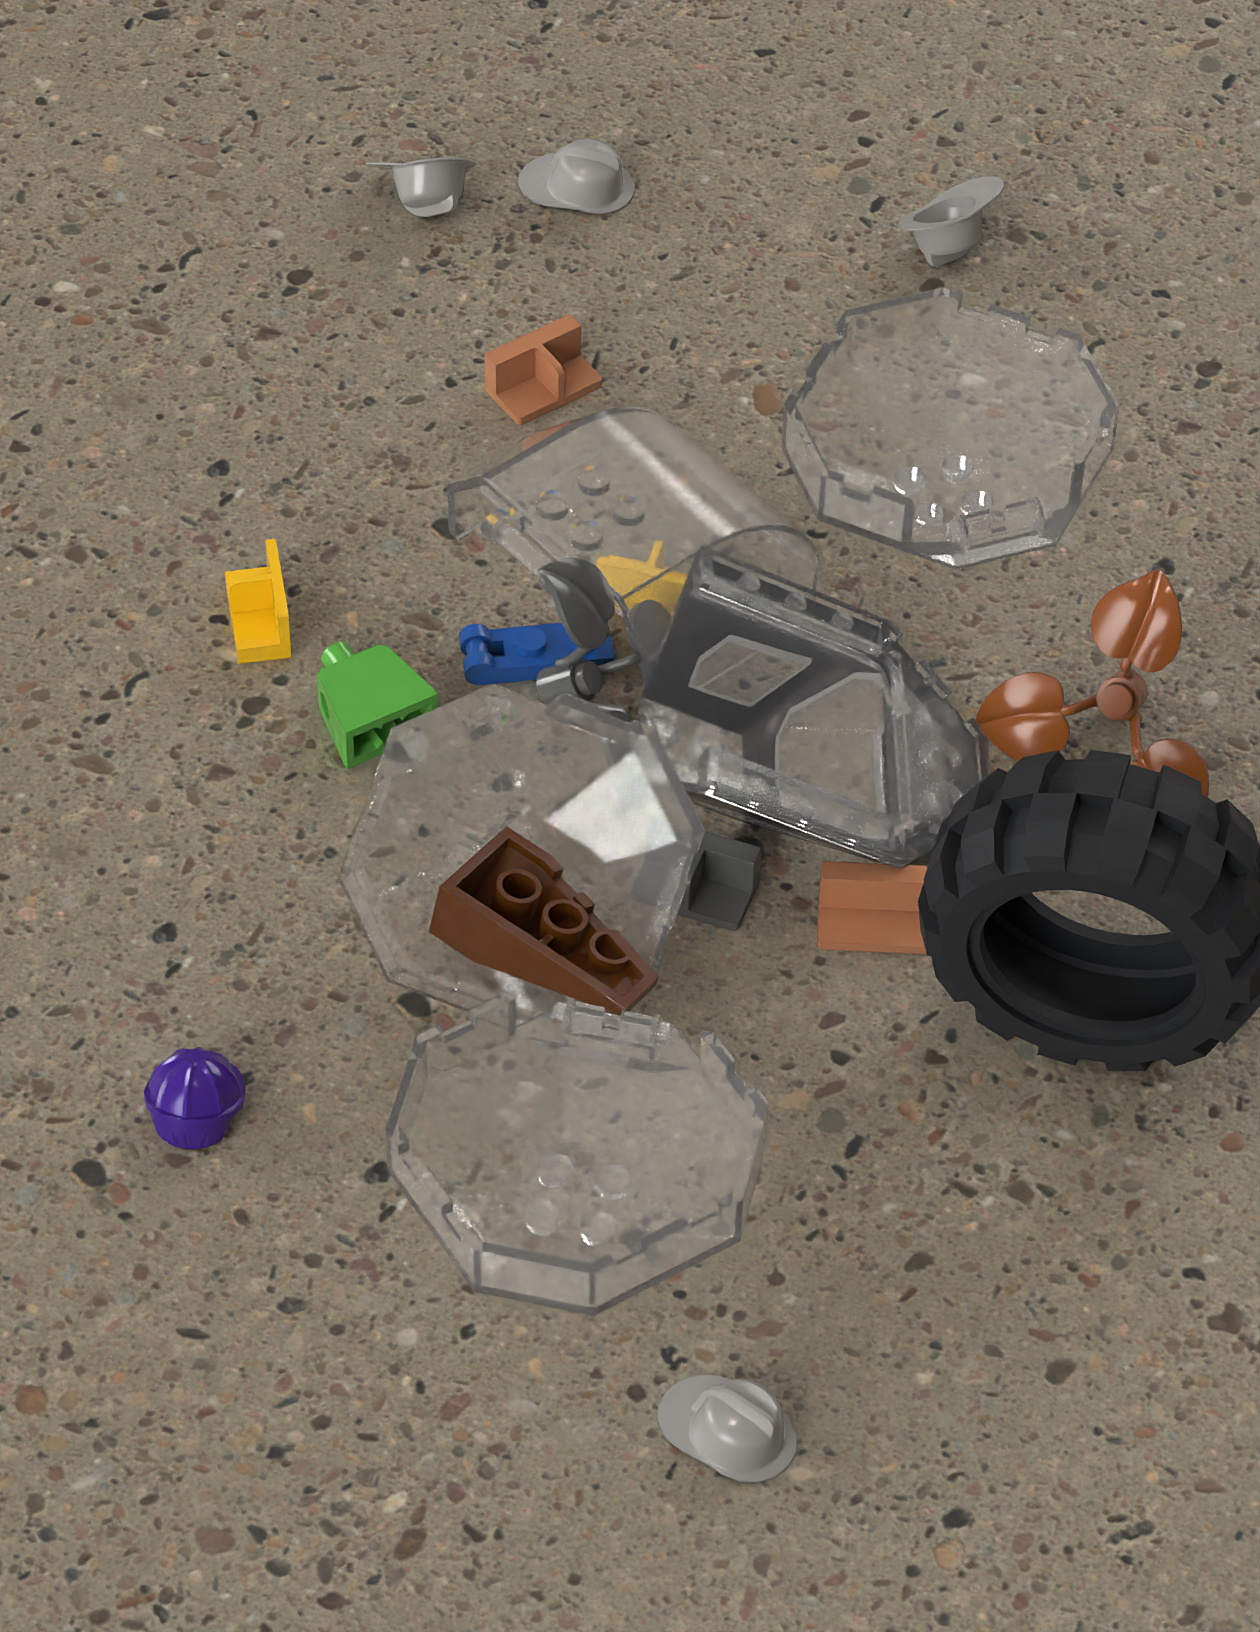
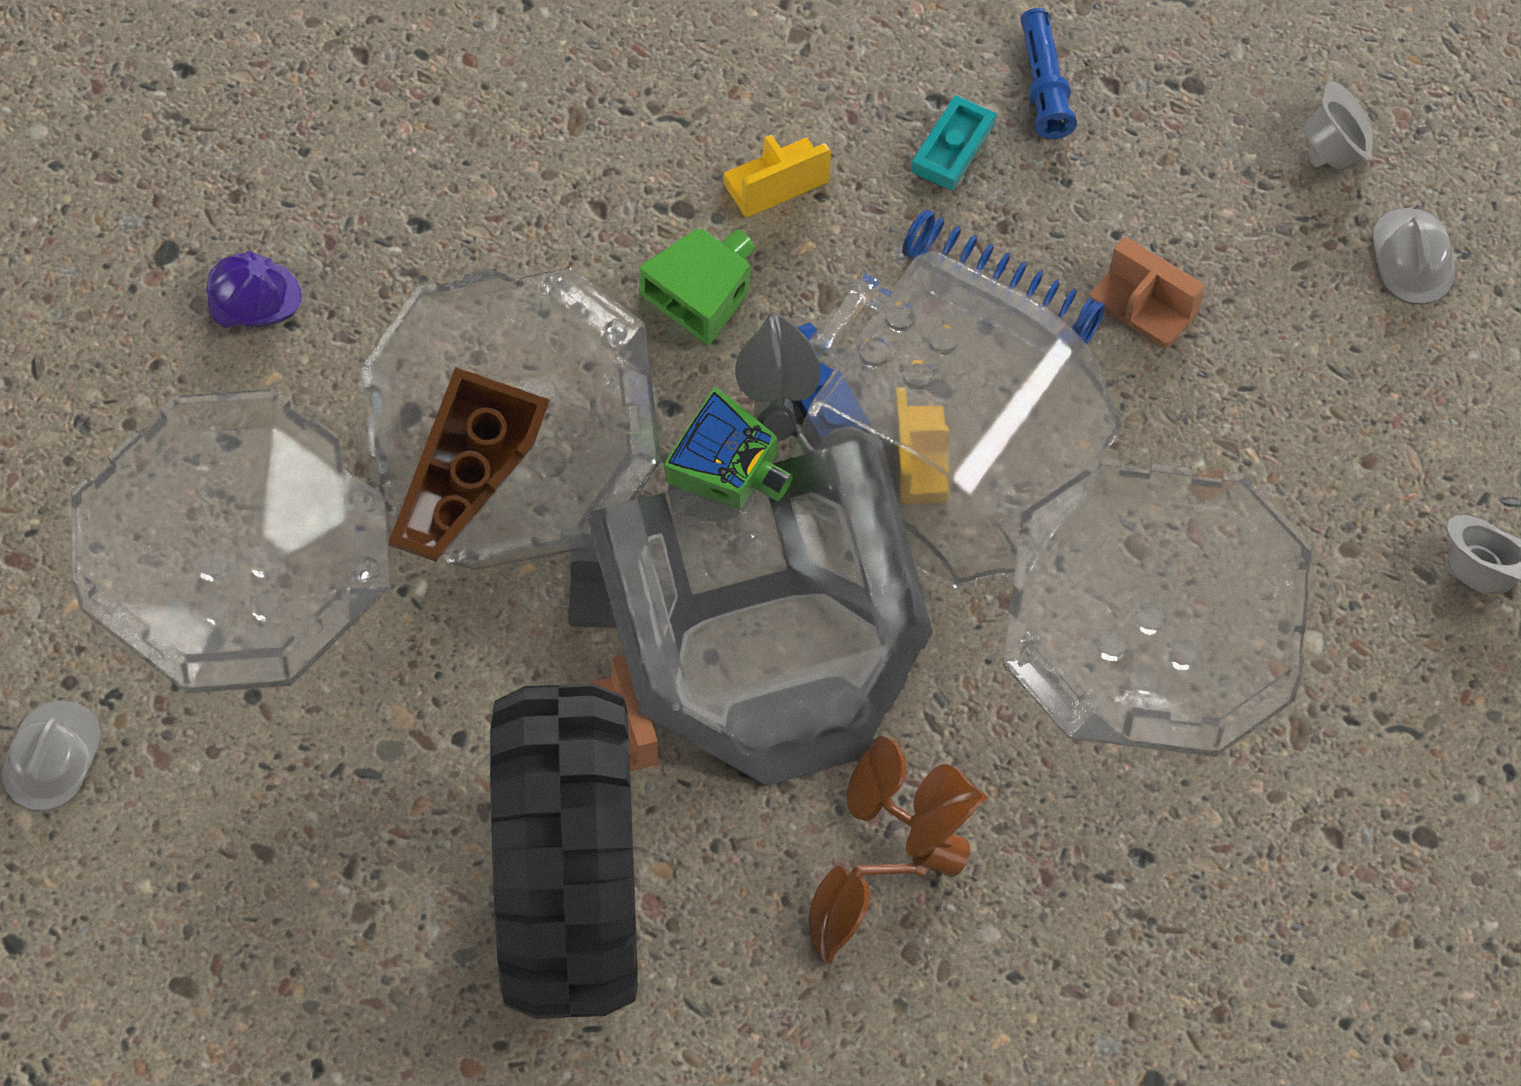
camera: 70 degrees right, 10 degrees up
(263, 365) = (1049, 89): none -> blue pin
(290, 461) = (953, 142): none -> teal plate
(393, 498) = (1090, 311): none -> blue piece
(643, 687) = (726, 455): none -> torso

